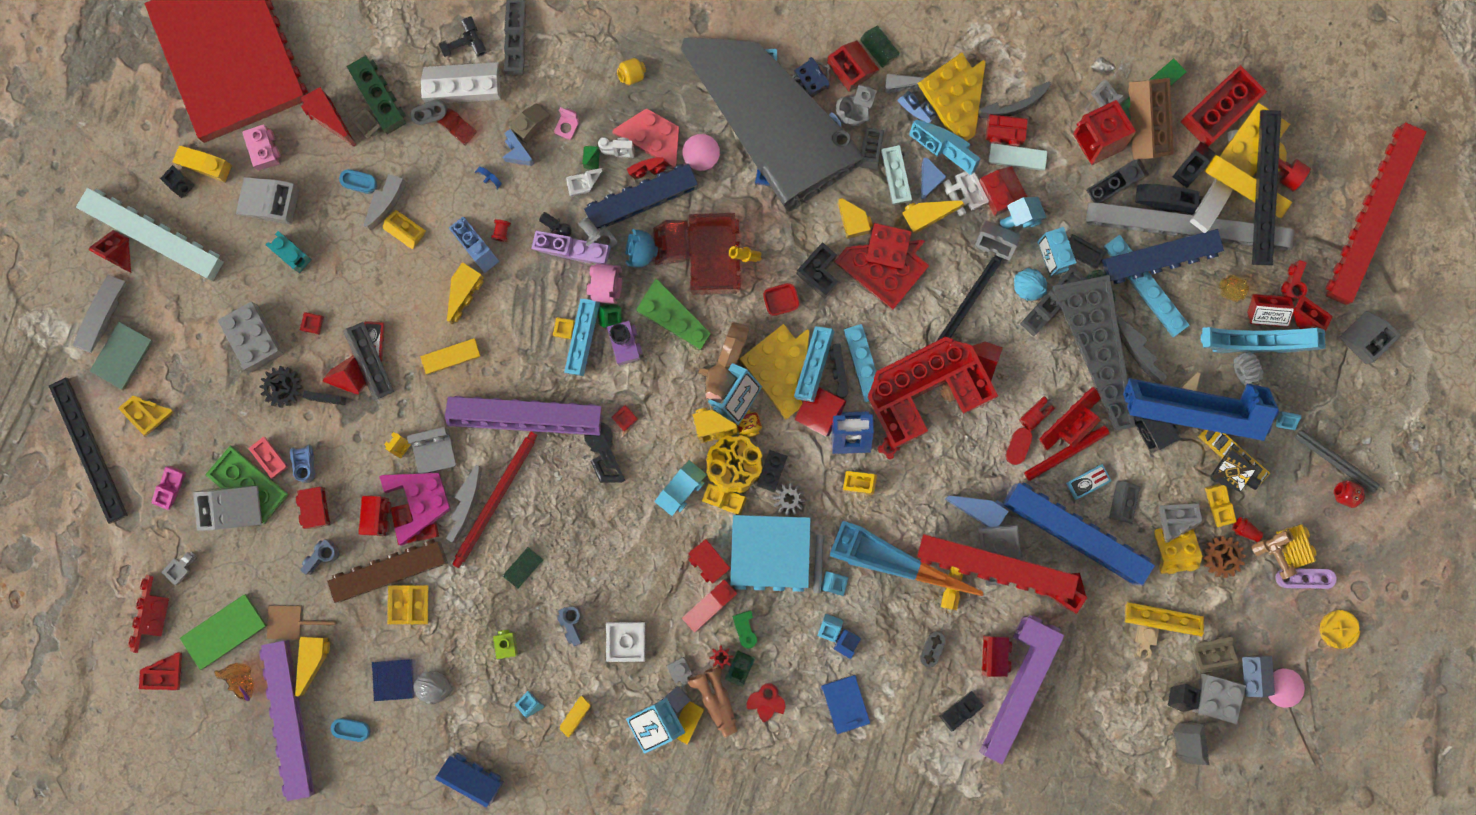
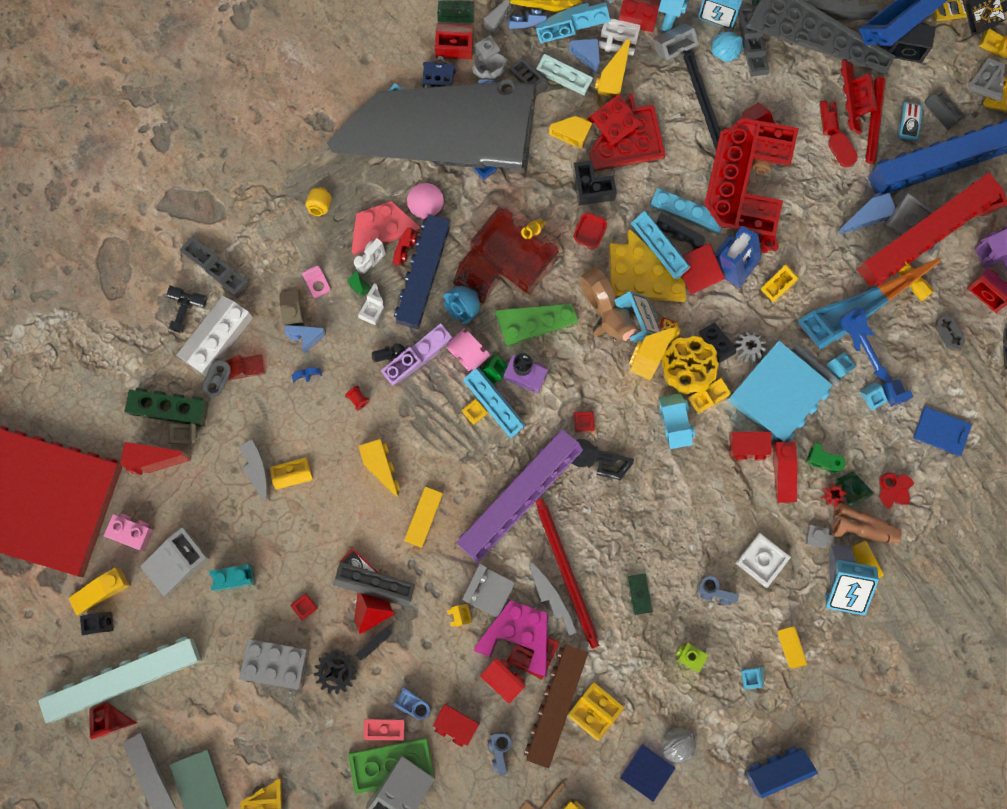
camera: 55 degrees left, 5 degrees down
(358, 181) = (222, 478): dark azure tile -> none
(474, 244) = (351, 427): medium blue slope -> none
(594, 233) = (422, 326): light grey bracket -> none
(871, 568) = (856, 325): none -> blue piece

